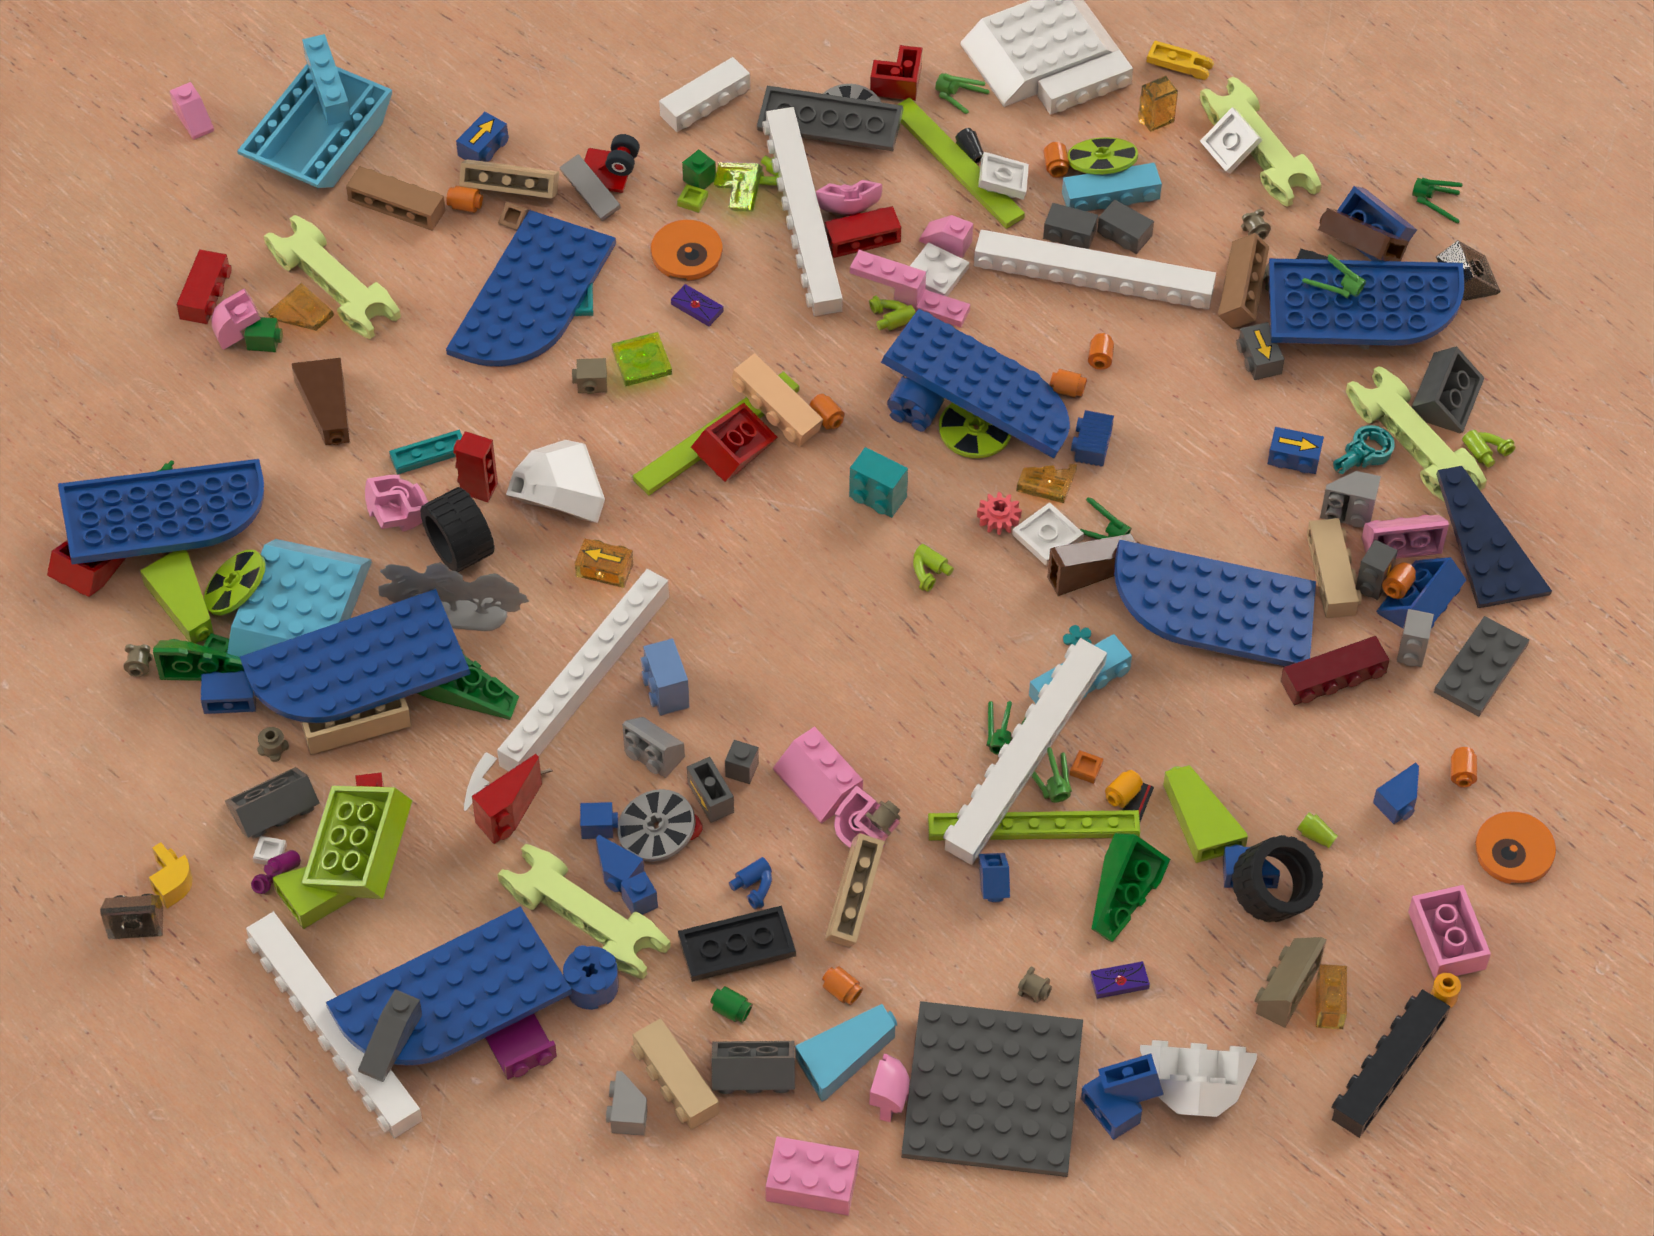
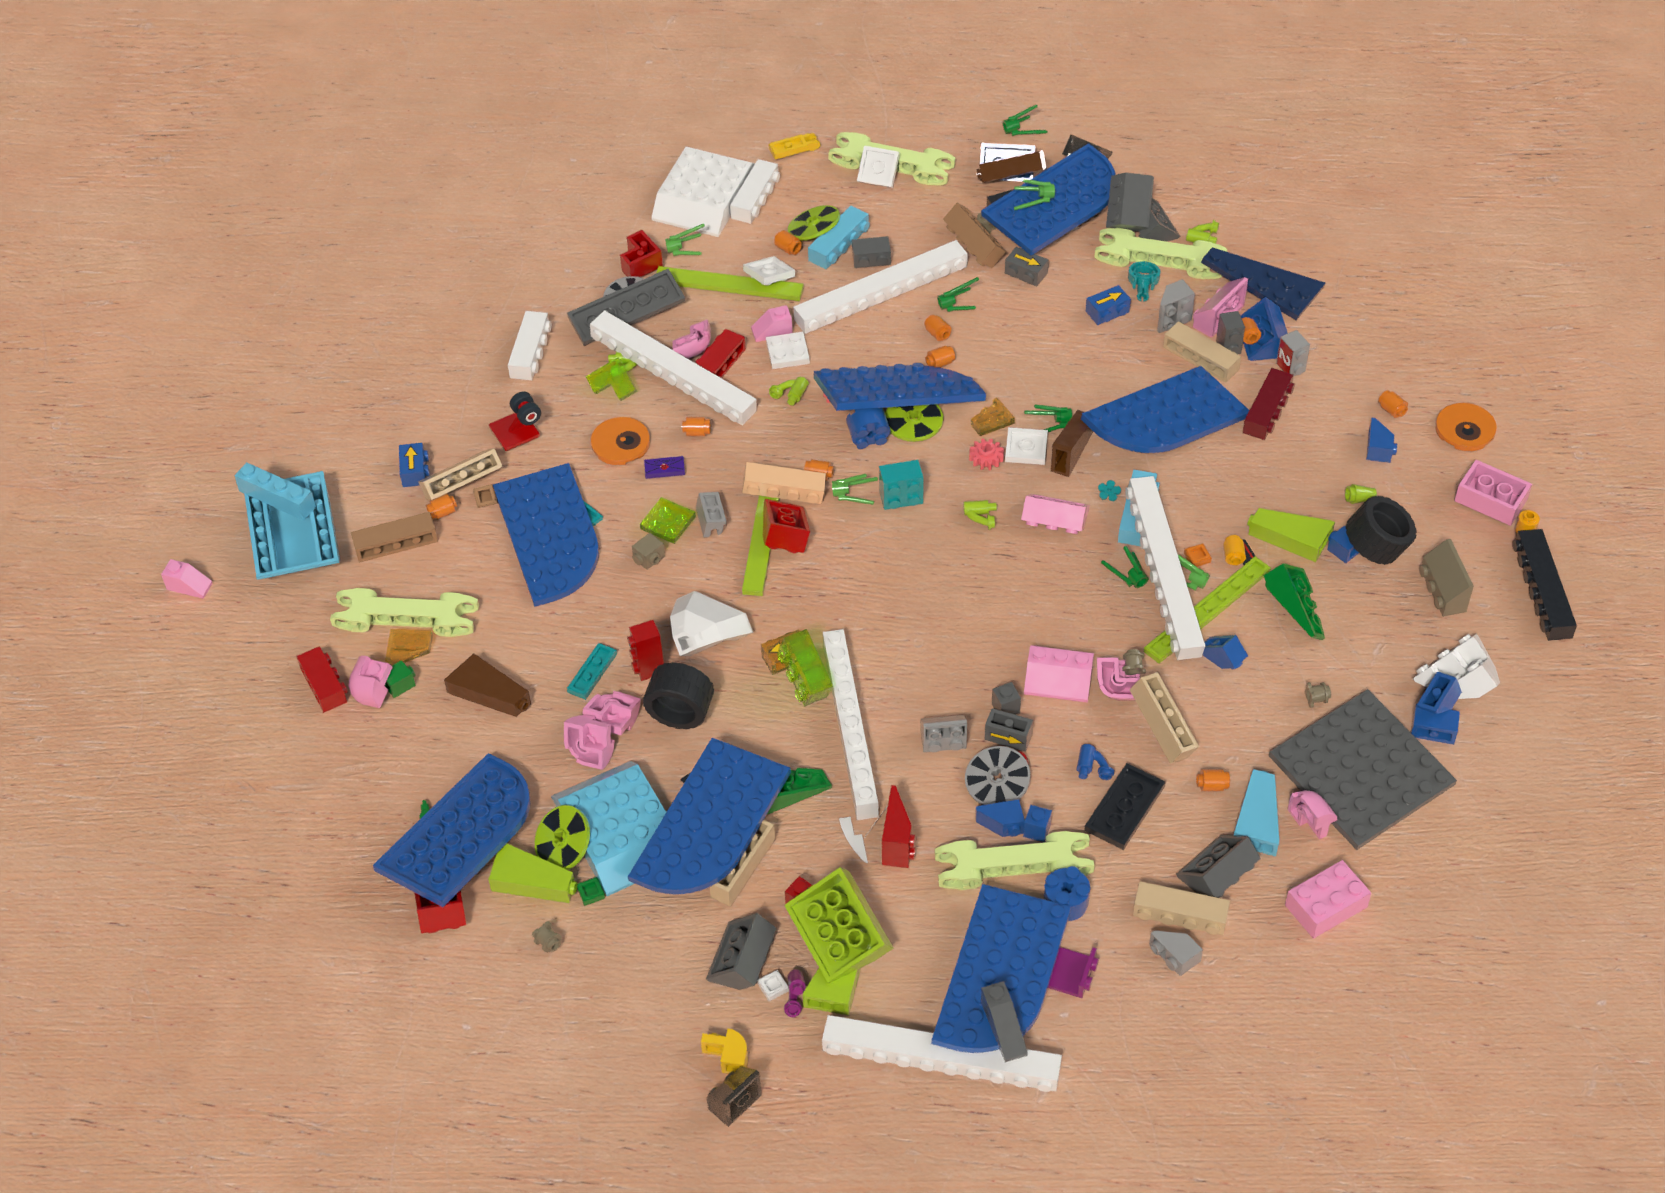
camera: 40 degrees left, 5 degrees down
(189, 660) = (589, 908): green wedge -> none
(227, 693) = (633, 910): blue brick -> none
(272, 743) = (698, 918): dark tan brick -> none
(349, 512) = (589, 740): none -> bright pink brick
(468, 605) = (729, 730): light grey plant -> none
(589, 588) = (804, 668): none -> clear neon green brick
(590, 187) = (518, 445): light grey tile -> none
(597, 820) = (960, 802): blue brick -> none
(665, 677) = (907, 685): medium blue brick -> none
(683, 379) = (710, 513): none -> light grey hinge
(692, 198) = (588, 409): lime tile -> none
(699, 170) = (578, 389): green brick -> none
(731, 1004) = (1164, 842): green brick -> none
(765, 286) = (696, 426): none -> orange brick
(830, 445) = (841, 488): none -> bright green plant
(909, 287) = (786, 365): bright pink bracket -> none
(970, 144) = (725, 266): black cone -> none
(997, 619) = (1055, 513): none -> bright pink slope
(1070, 226) = (839, 272): dark grey brick -> none
(1093, 438) = (990, 376): blue brick -> none
(1120, 980) = (1354, 655): dark purple tile -> none
(1144, 330) = (947, 299): none -> green plant
(1158, 103) = (815, 173): clear yellow brick -> none
(1255, 224) = (943, 203): dark tan brick -> none
(1331, 996) = (1480, 572): clear yellow brick -> none
(1431, 356) = (1130, 201): none -> dark grey slope
(1481, 666) = (1336, 347): dark grey plate -> none

